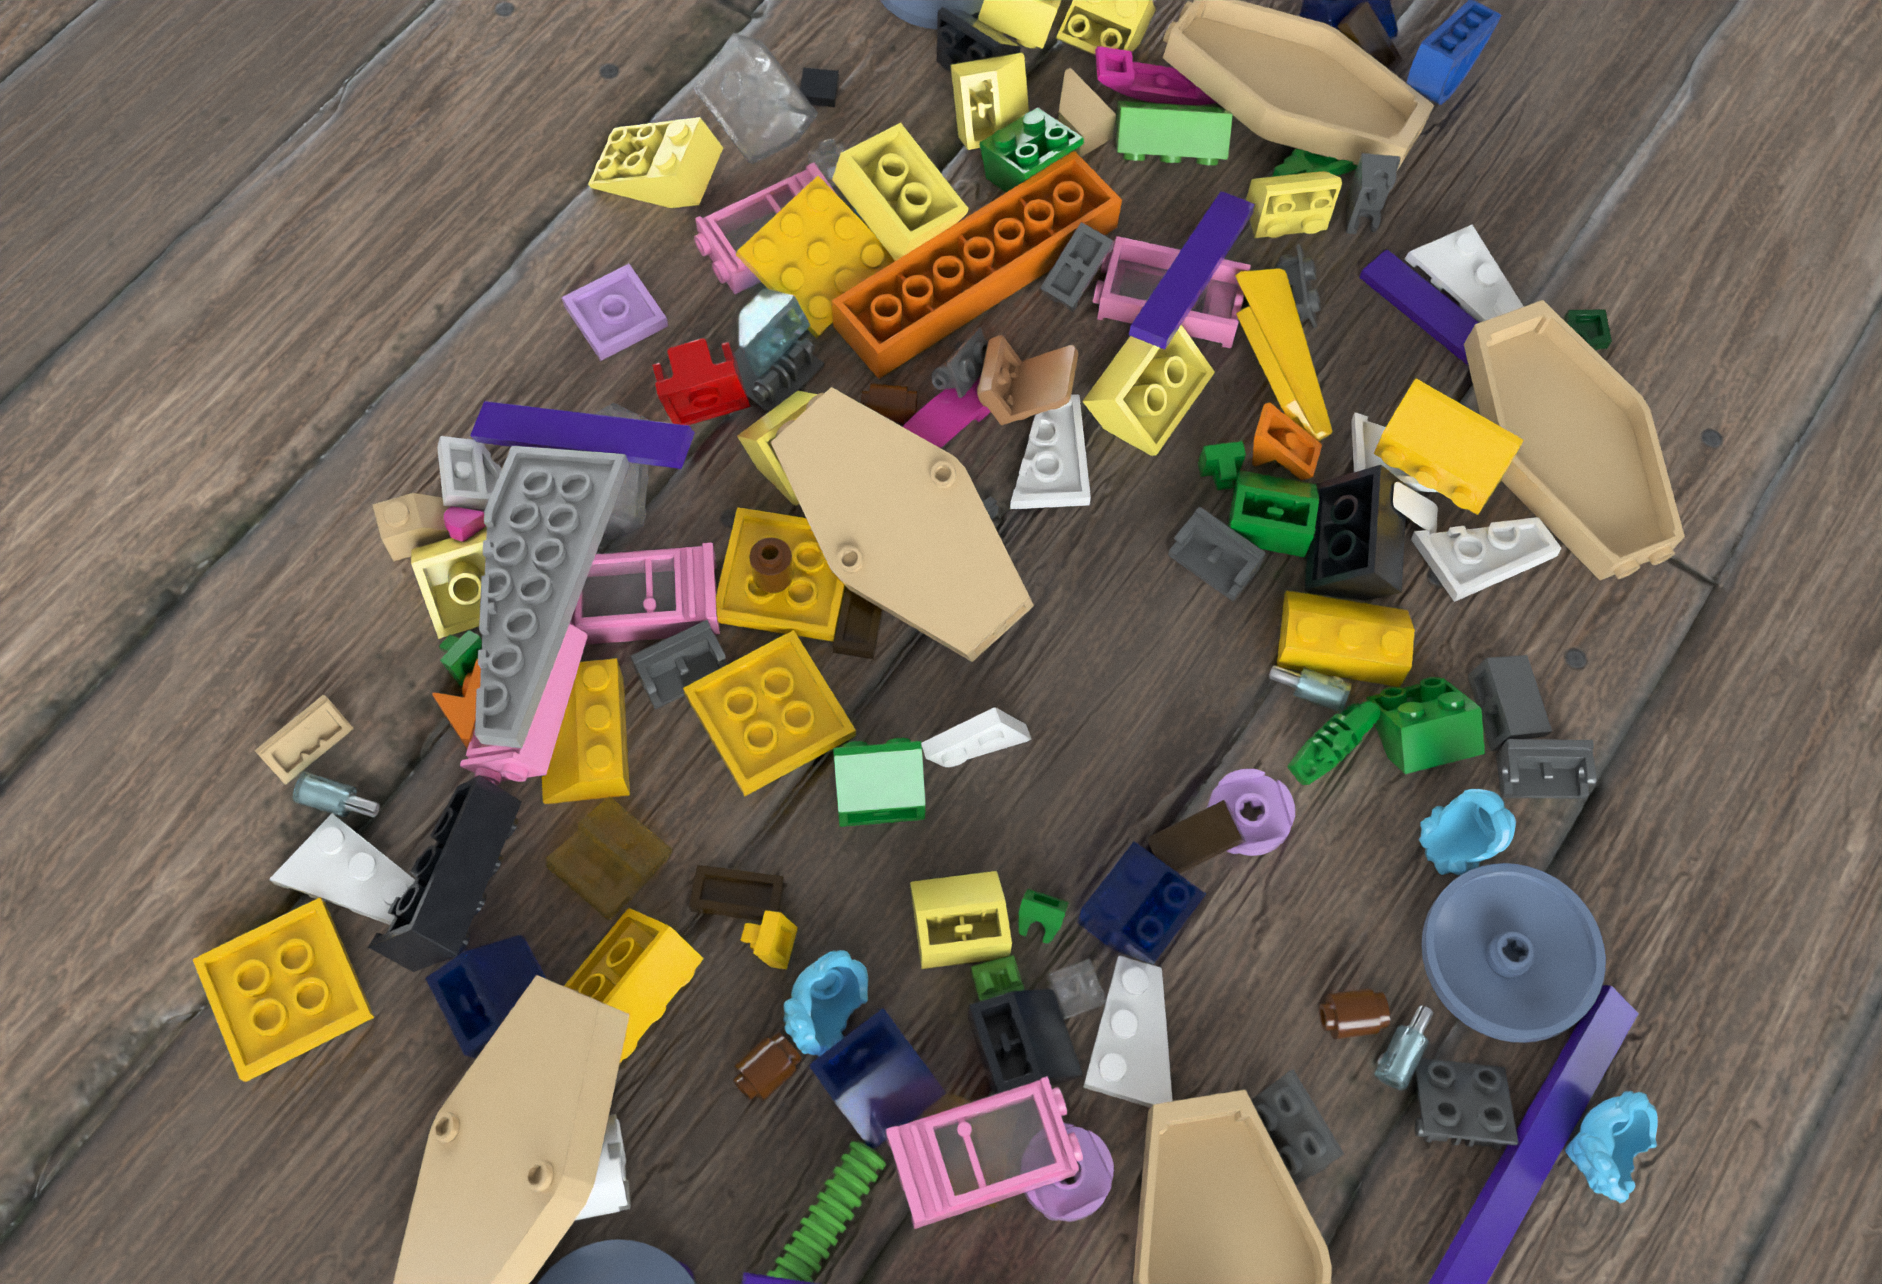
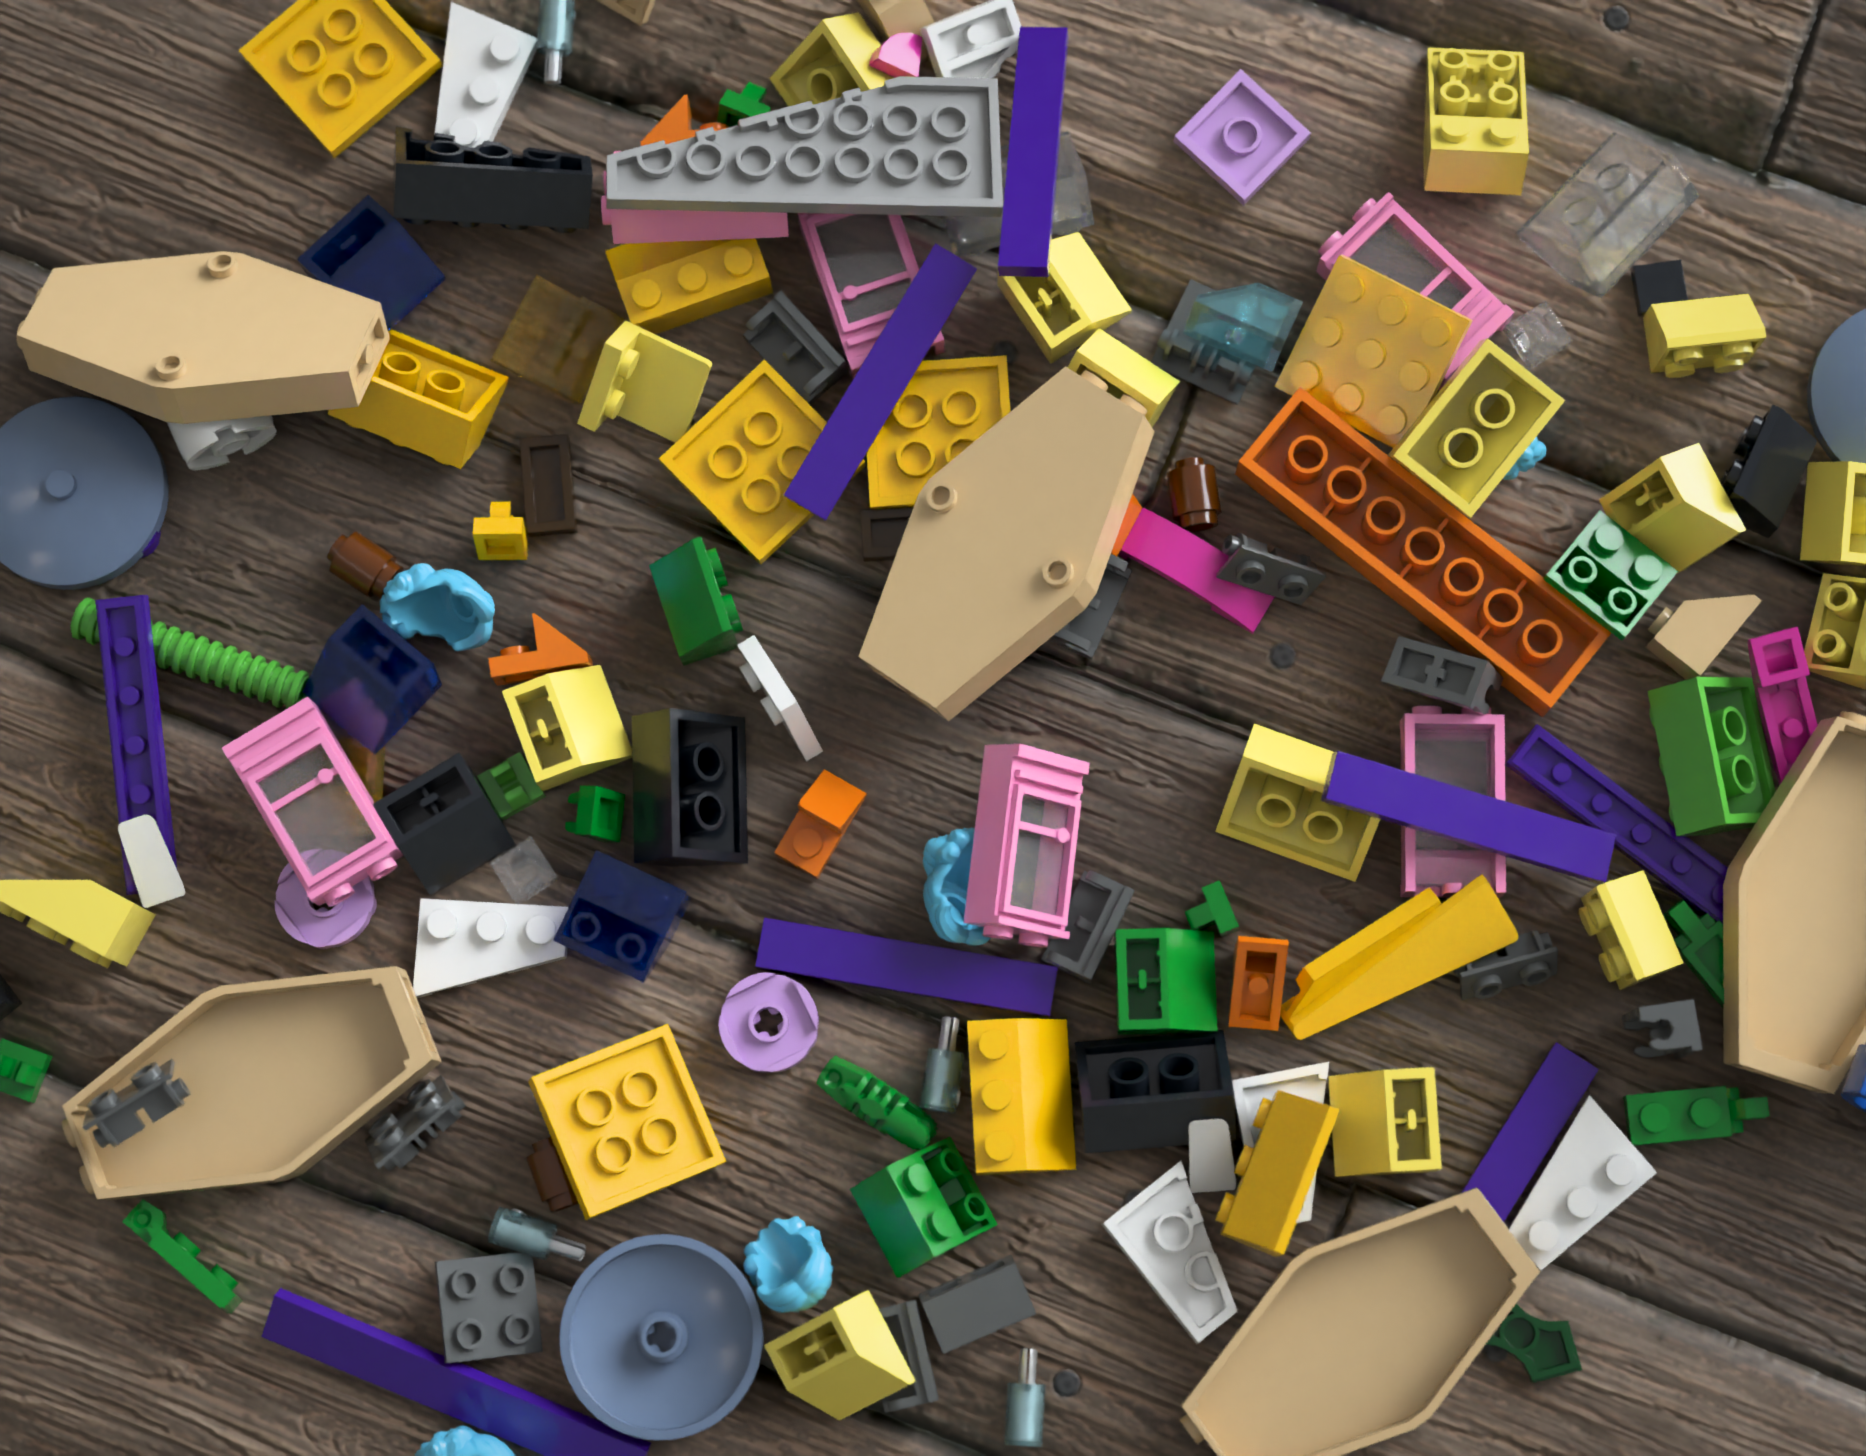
camera: 85 degrees right, 15 degrees up
(676, 781) = (645, 383): none -> light yellow bracket
(698, 386) = (1148, 264): red panel -> none
(712, 465) = (1069, 302): none -> light yellow slope
(735, 595) = (880, 382): none -> dark purple tile
(771, 565) = (923, 426): reddish brown brick -> none
(864, 59) = (1702, 334): none -> light yellow slope
(889, 917) = (553, 654): none -> orange slope
(1027, 387) = (1258, 646): medium nougat bracket -> none
(1037, 832) = (689, 788): none -> black slope
(1054, 461) = (1174, 709): white wing -> none
(1082, 732) = (820, 823): none -> orange slope
(1146, 575) = (1024, 844): none -> bright pink door
(1168, 638) = (945, 889): none -> medium azure hair
(1188, 206) = (1608, 807): none -> dark purple tile
(1197, 838) = (717, 965): dark brown tile -> none
(1220, 700) = (906, 967): none -> dark purple tile
(1321, 941) = (626, 1121): none -> yellow plate
(1396, 364) = (1385, 1122): none -> light yellow slope
(1426, 203) = (1689, 1114): none -> green hinge
(1547, 806) = (841, 1359): none -> light yellow slope
(1595, 686) = (1025, 1406): none -> clear light blue piece

